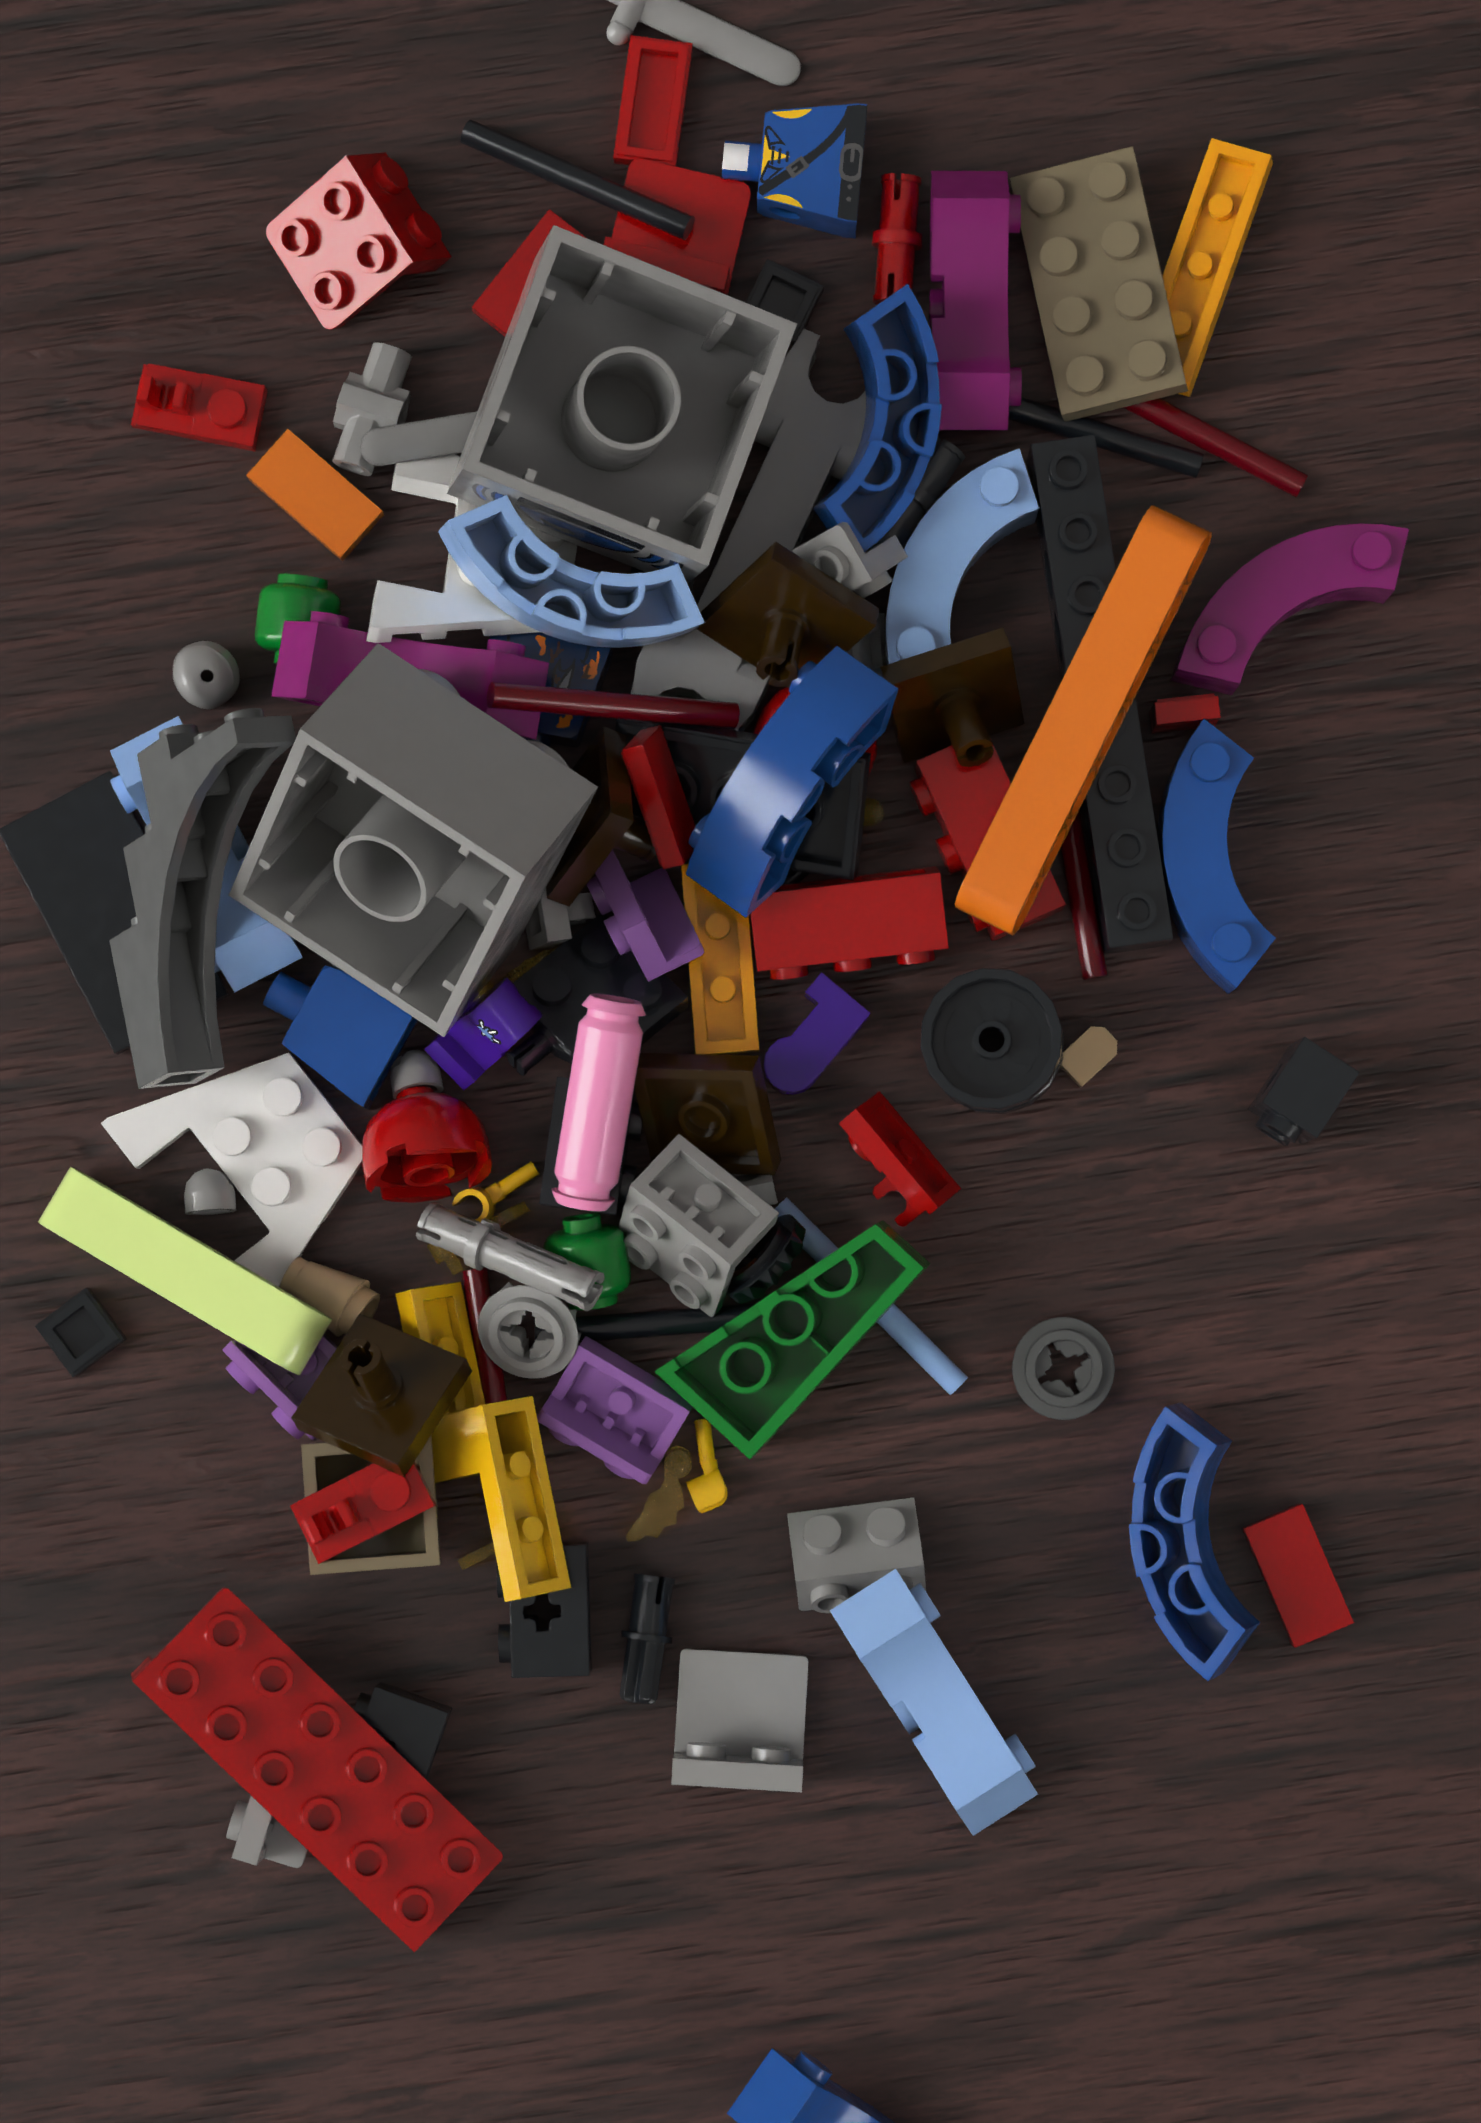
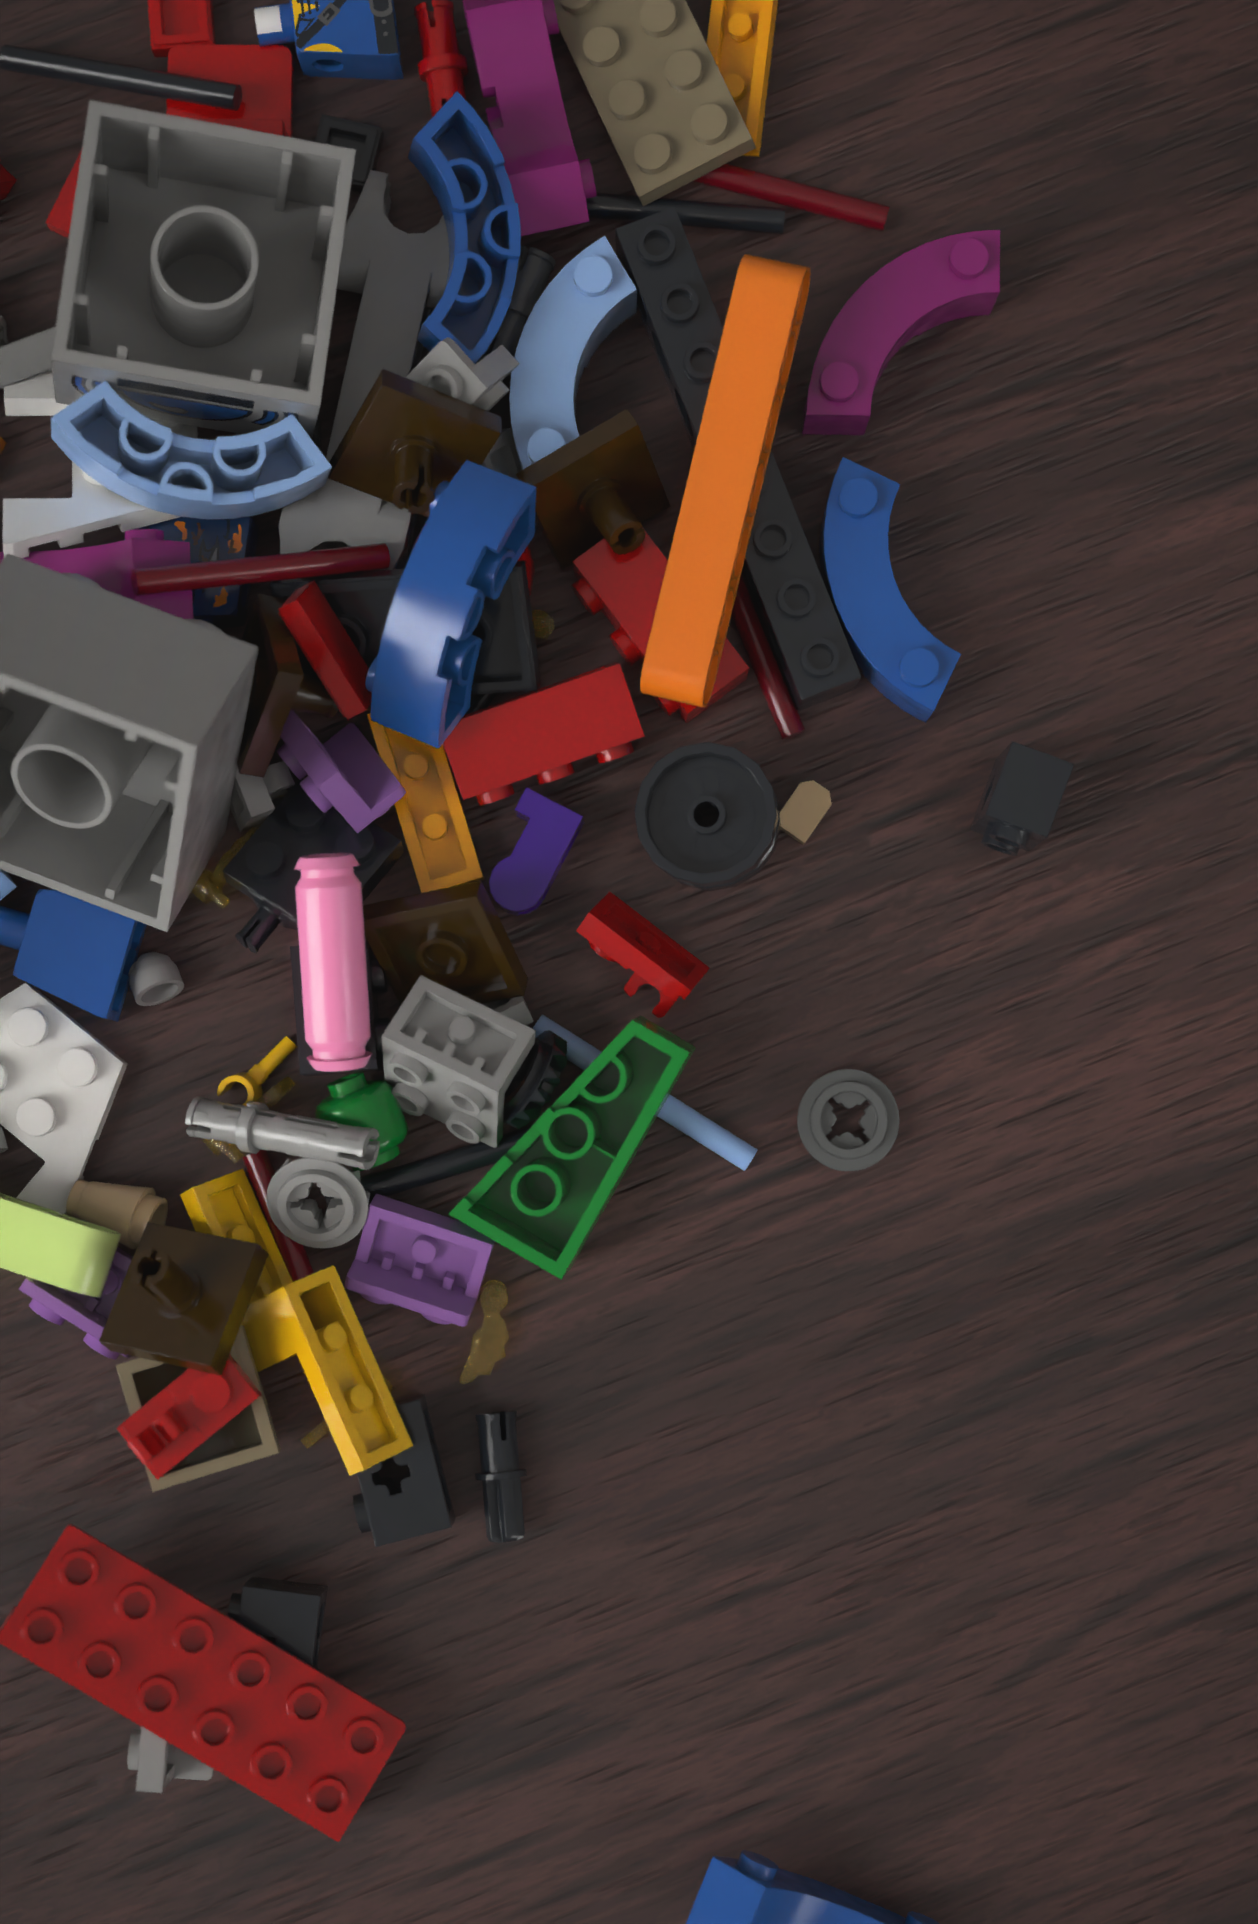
camera: 15 degrees left, 0 degrees up
(422, 1145) = (174, 1045): red cylinder -> none
(483, 1033) = (209, 921): dark purple leg -> none
(708, 1489) = (531, 1315): yellow hand -> none
(740, 1720) = (610, 1537): light grey bracket -> none
(851, 1548) = (688, 1348): light grey bracket -> none
(928, 1692) = (778, 1457): light blue brick -> none
(1174, 1542) = (995, 1269): blue brick -> none
(1183, 713) = (821, 459): red tile -> none
(1297, 1575) = (1121, 1270): red tile -> none

